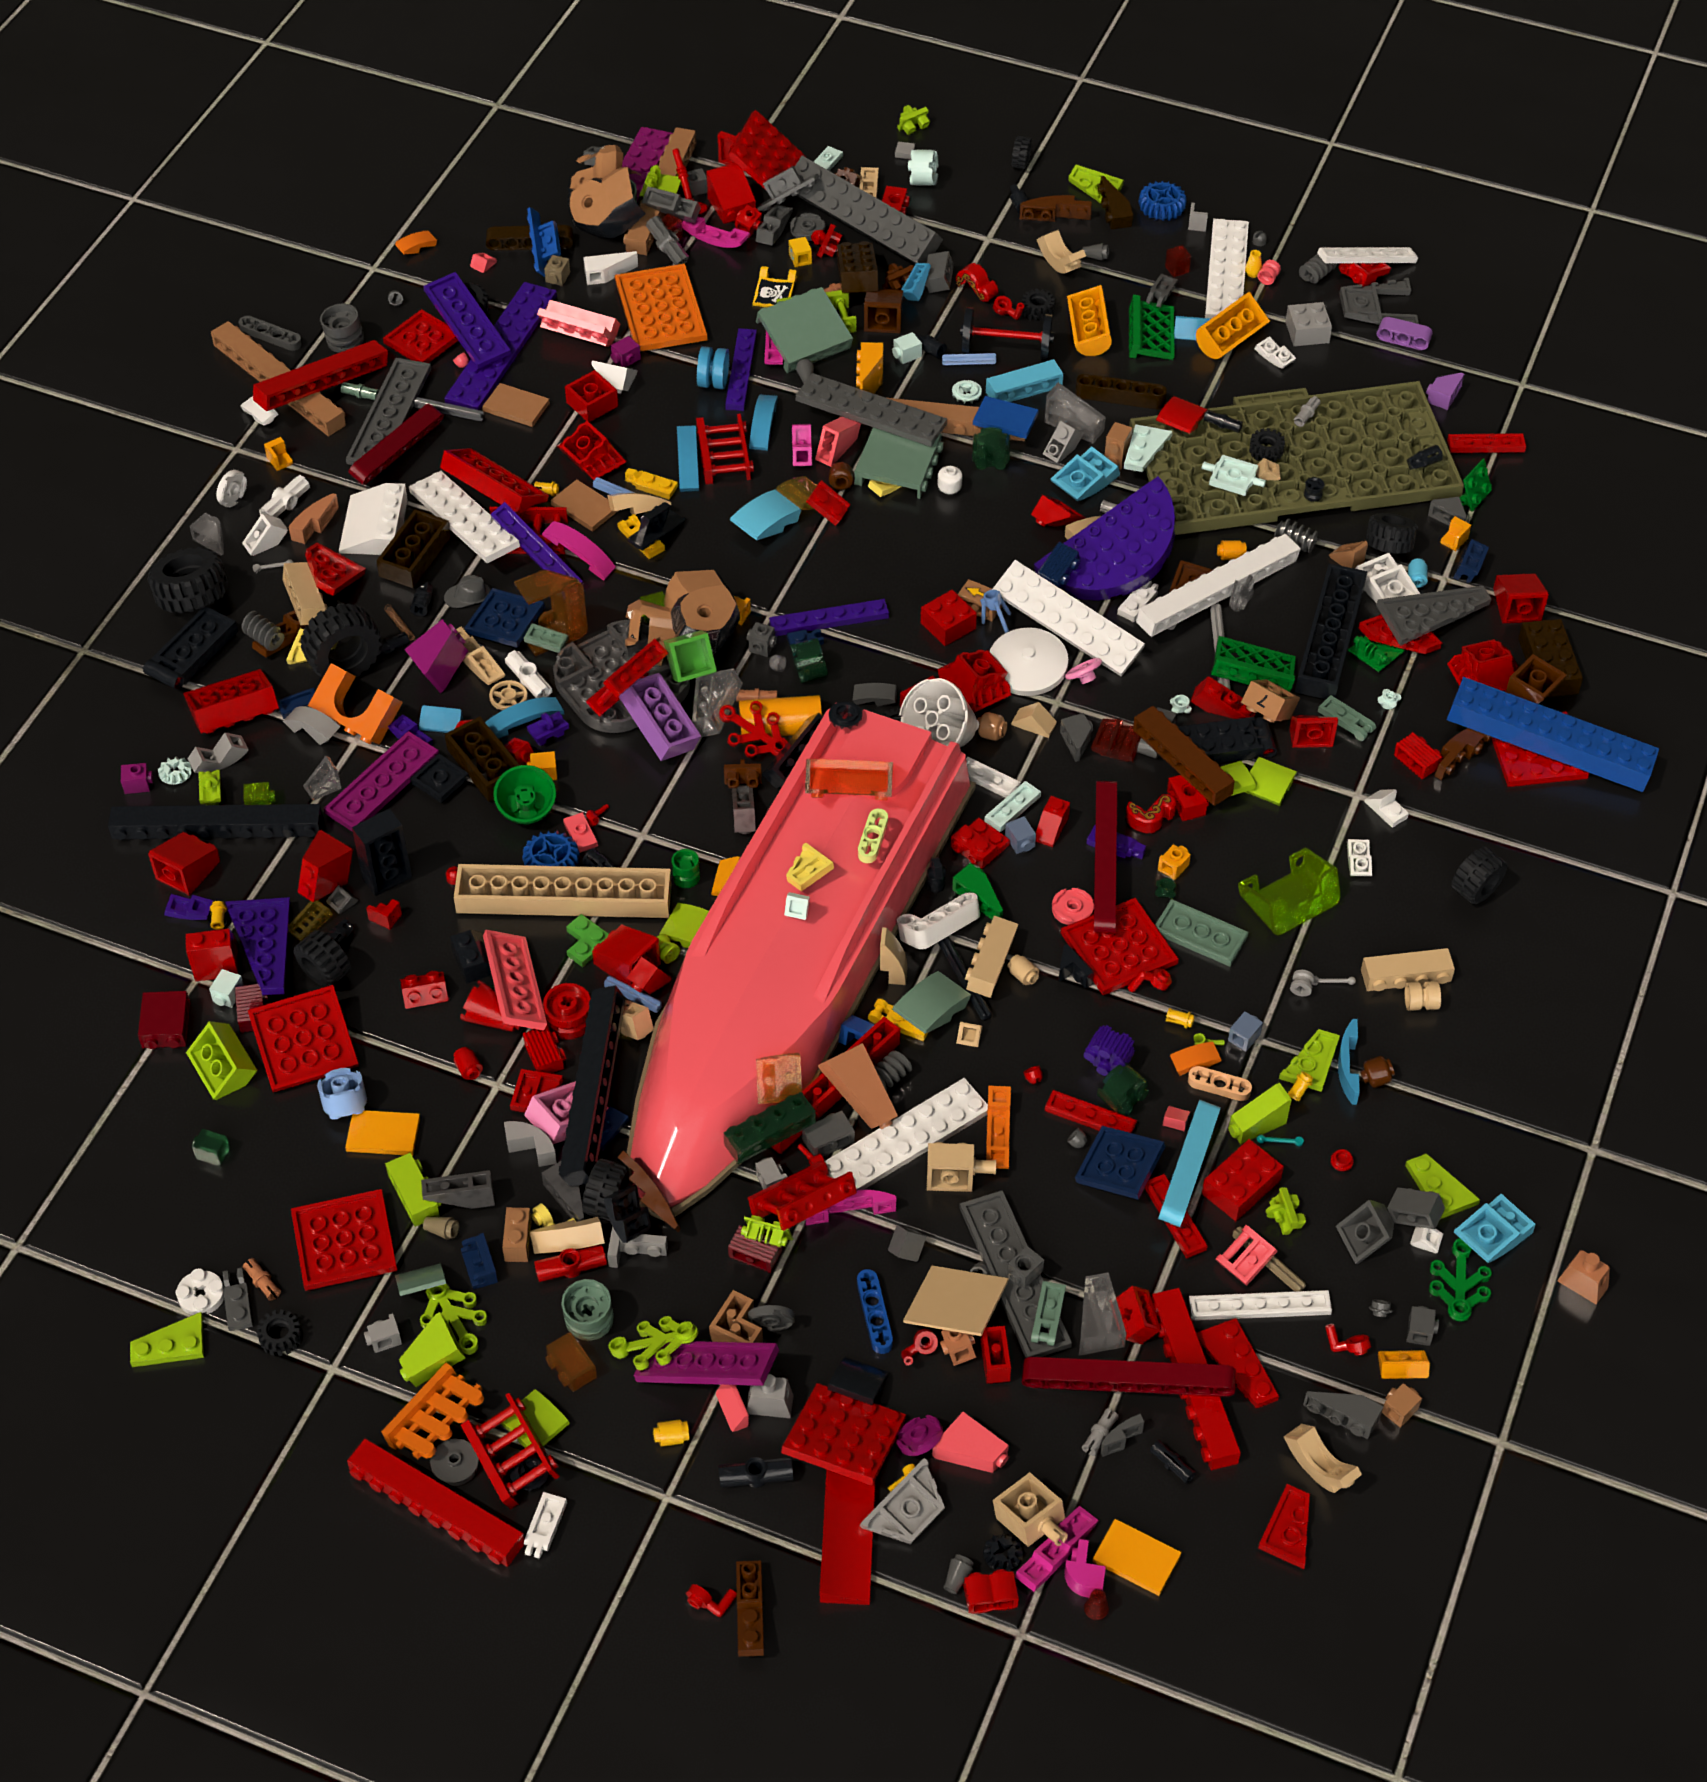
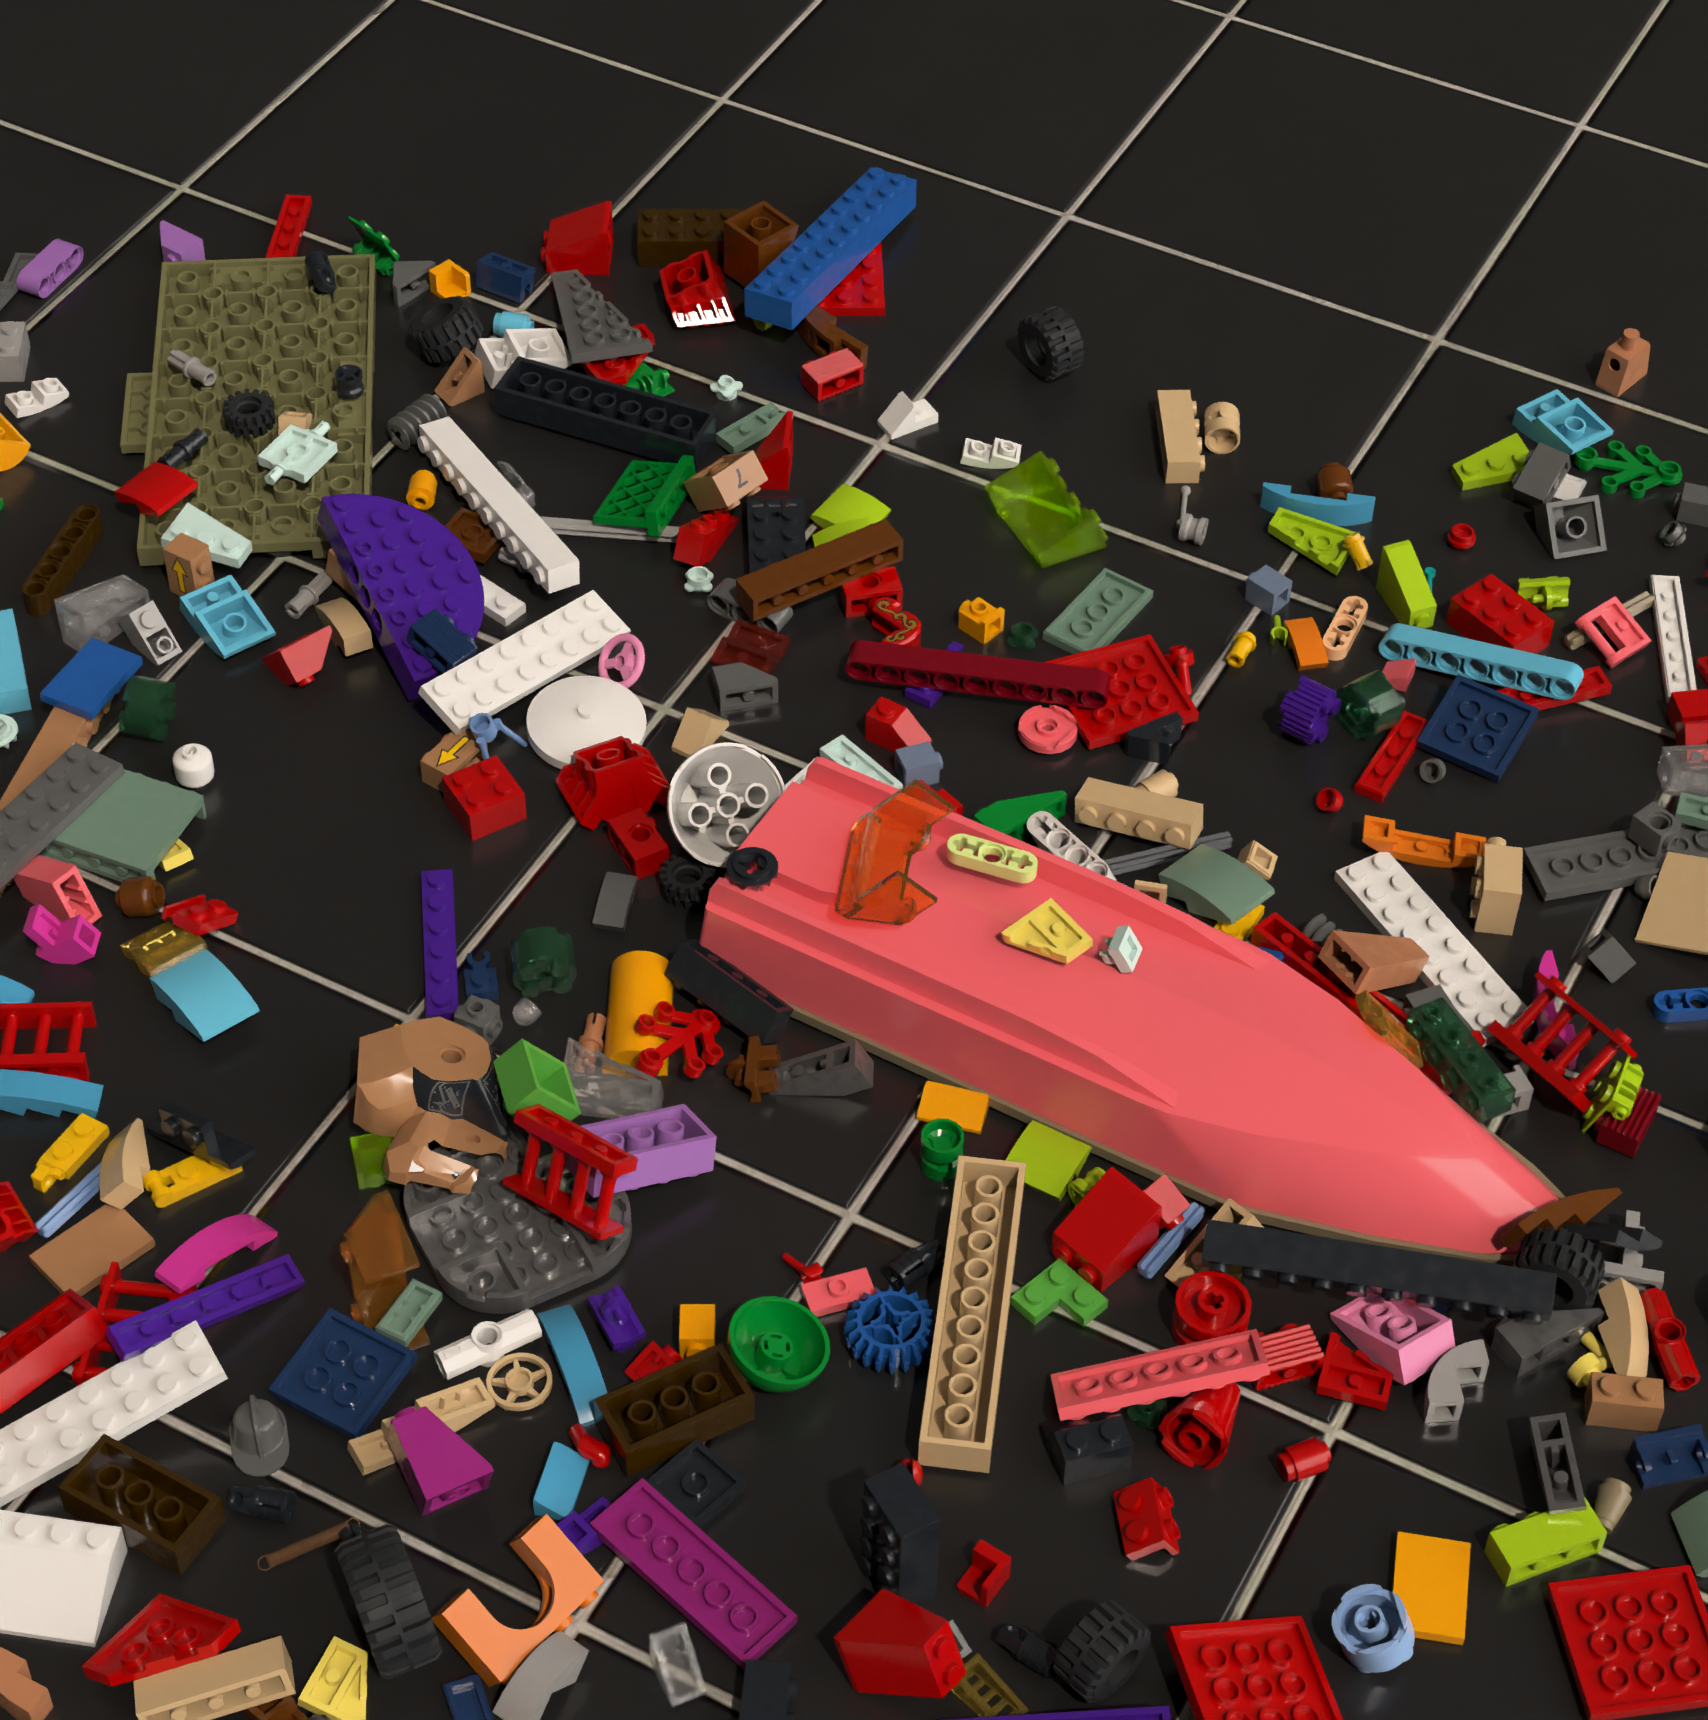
camera: 85 degrees left, 5 degrees down
(549, 488) = (39, 1295): yellow pin -> none

